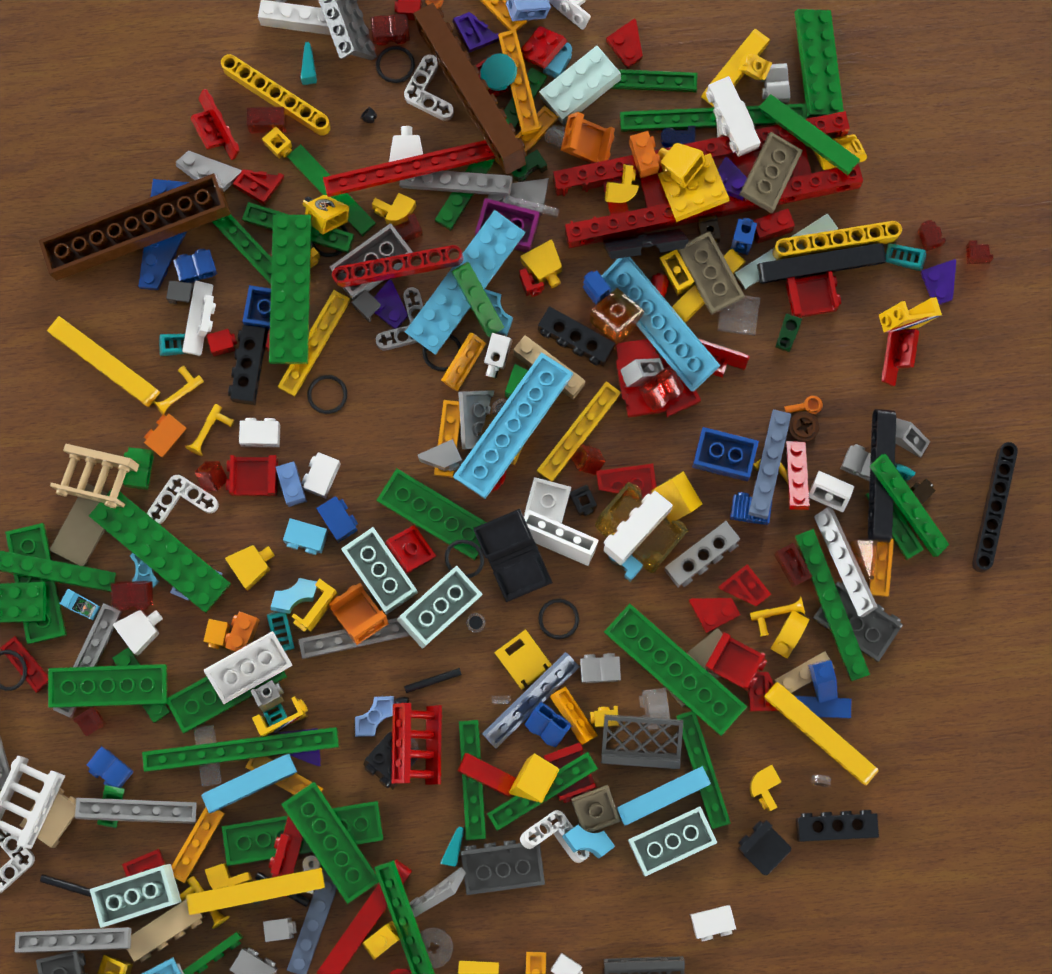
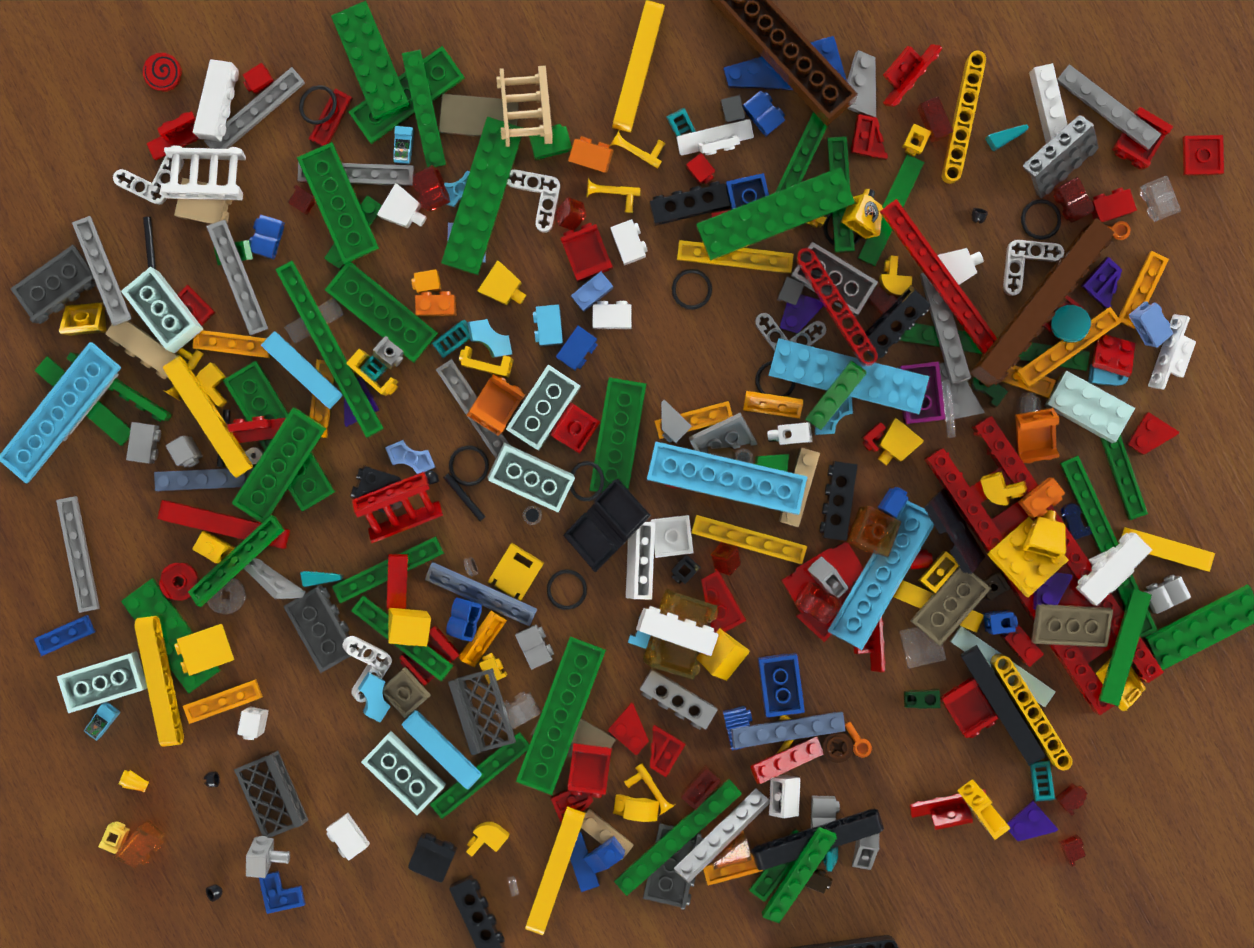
camera: 65 degrees right, 10 degrees up
(248, 667) = (405, 324): white plate -> none
(409, 647) = (470, 448): none -> black tyre
(437, 213) = (882, 325): none -> black brick
(754, 66) = (1174, 568): yellow brick -> none

